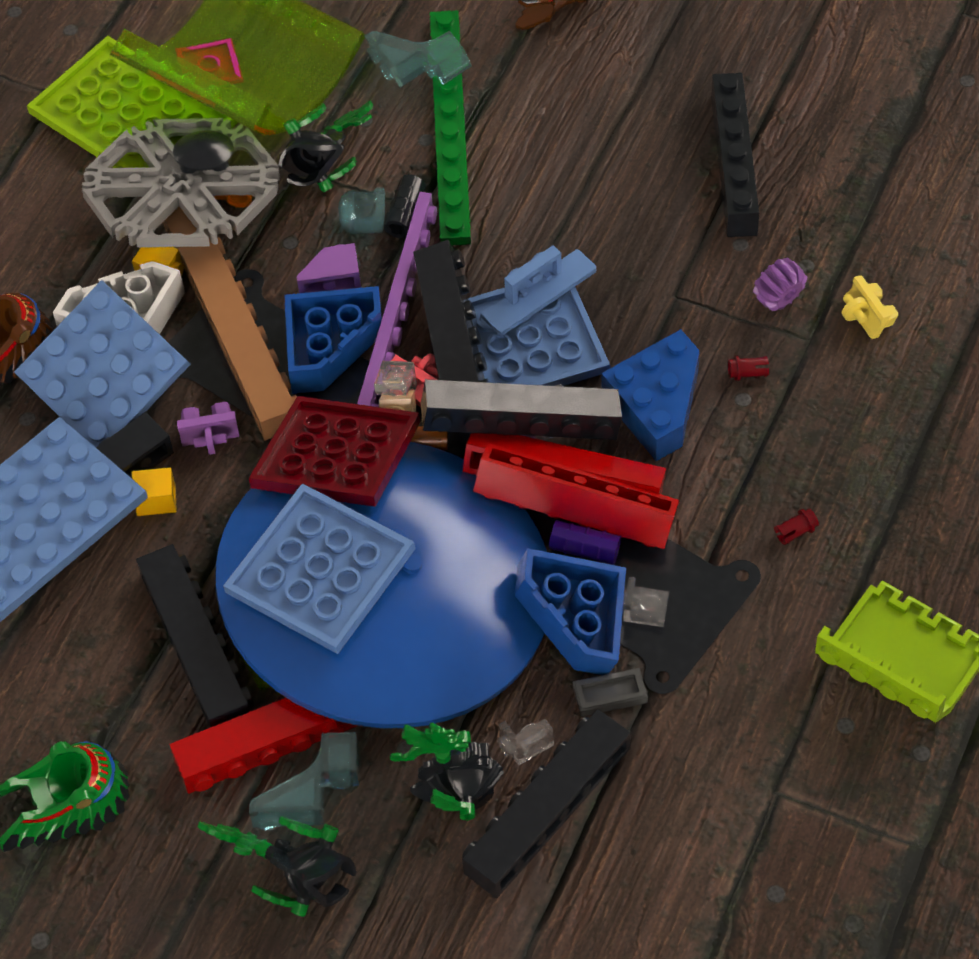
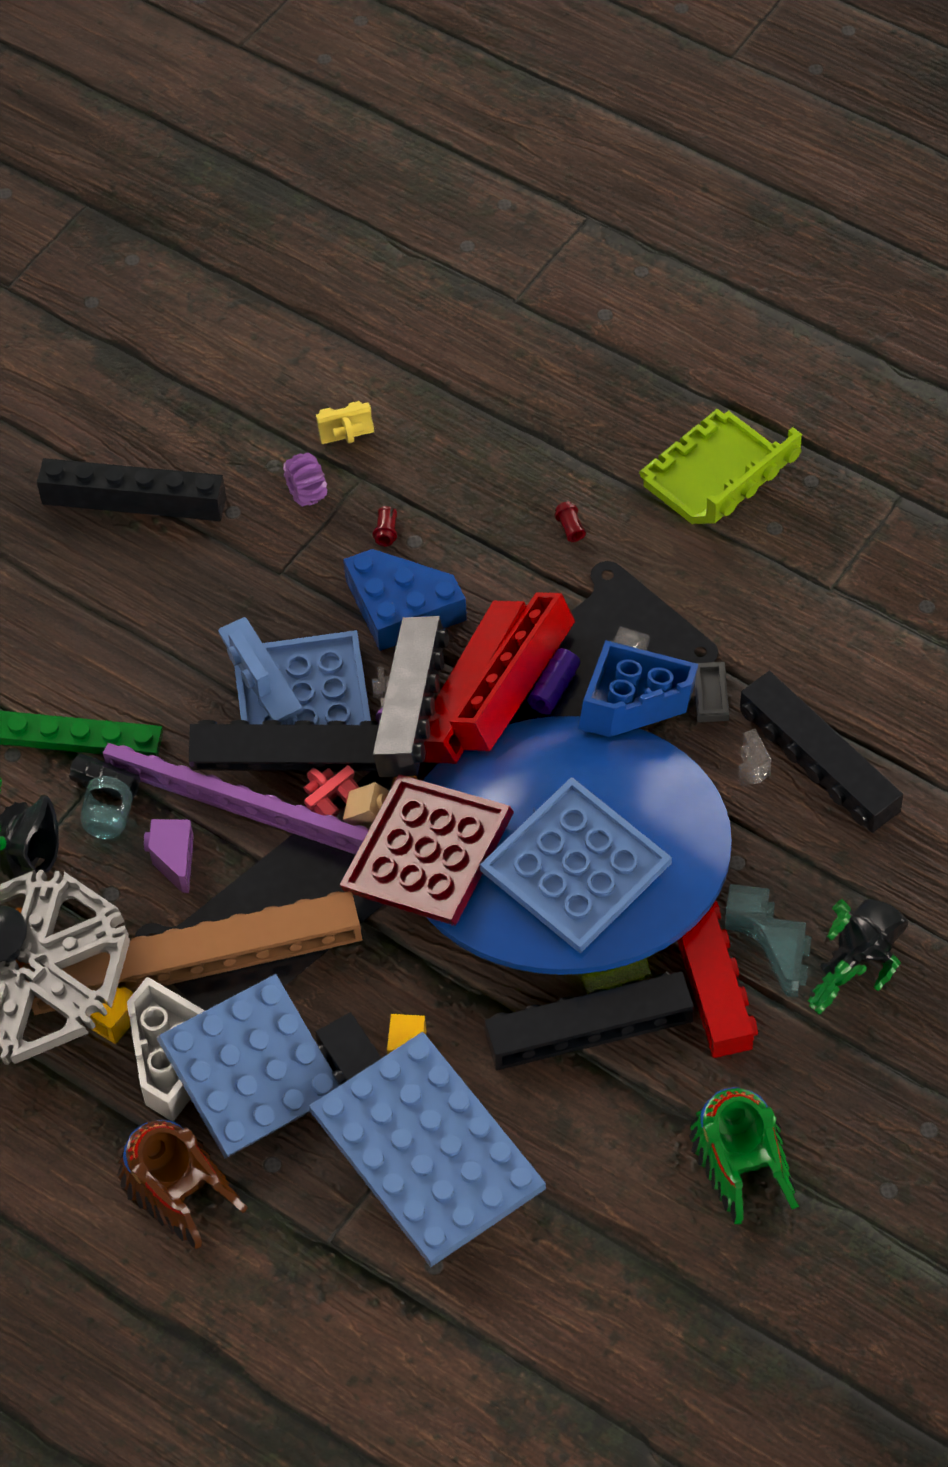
camera: 80 degrees left, 0 degrees up
(207, 429) = (337, 970): medium lavender hips -> none
(328, 333) = (258, 858): blue brick -> none
(395, 378) = (344, 795): clear bracket -> none
(457, 772) = (787, 810): helmet -> none

